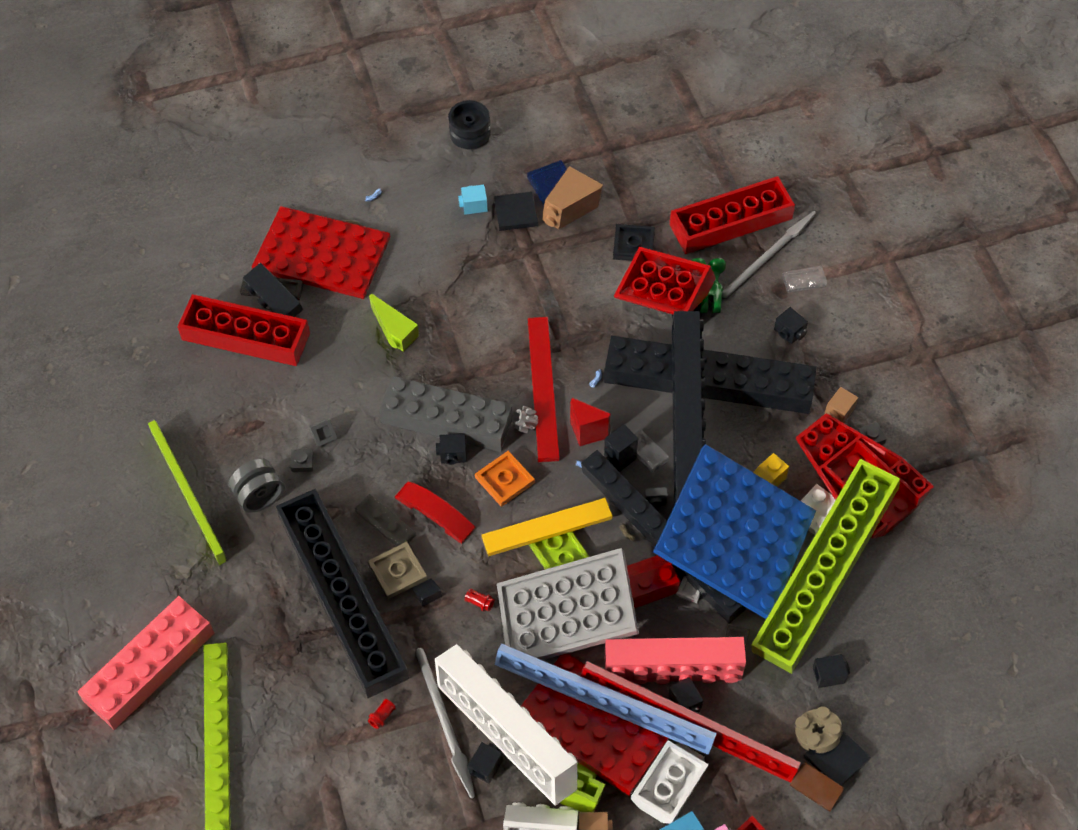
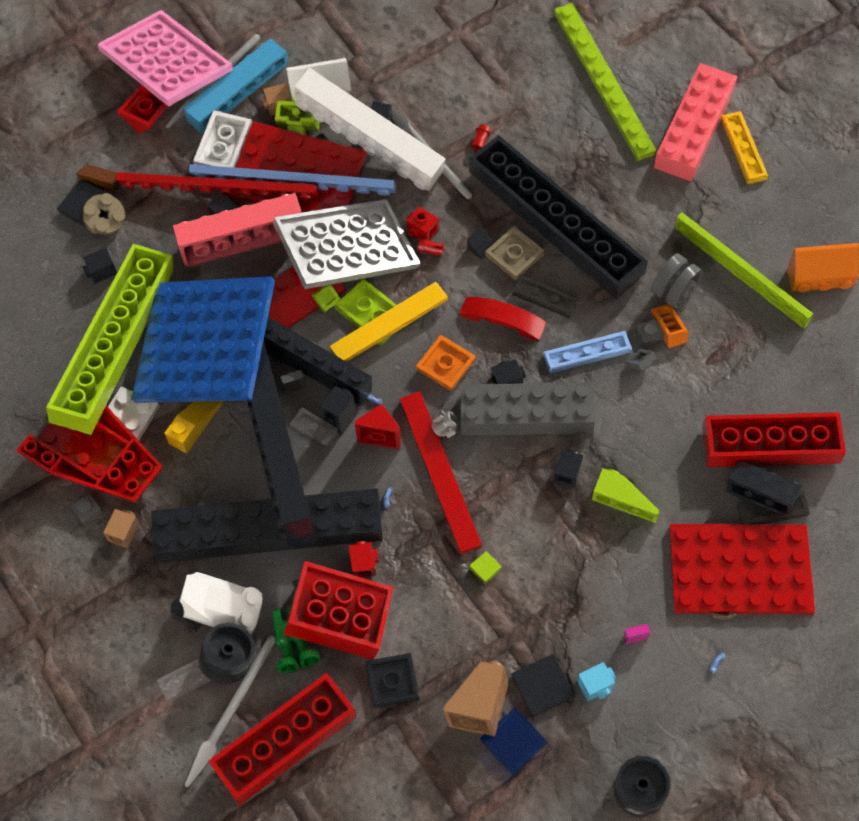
camera: 165 degrees right, 5 degrees up
(111, 624) = (744, 147): none -> yellow tile
(112, 467) = (824, 267): none -> orange slope
(281, 445) = (675, 336): none -> orange slope
(368, 458) = (587, 352): none -> light blue tile
(428, 222) = (636, 634): none -> dark pink tile
(430, 353) = (568, 468): none -> black brick
(480, 624) = (422, 224): none -> red brick
(530, 303) = (485, 567): none -> lime tile
(633, 324) = (363, 559): none -> red brick
(759, 316) = (220, 602): none -> white slope
(765, 279) = (226, 653): none -> black wheel

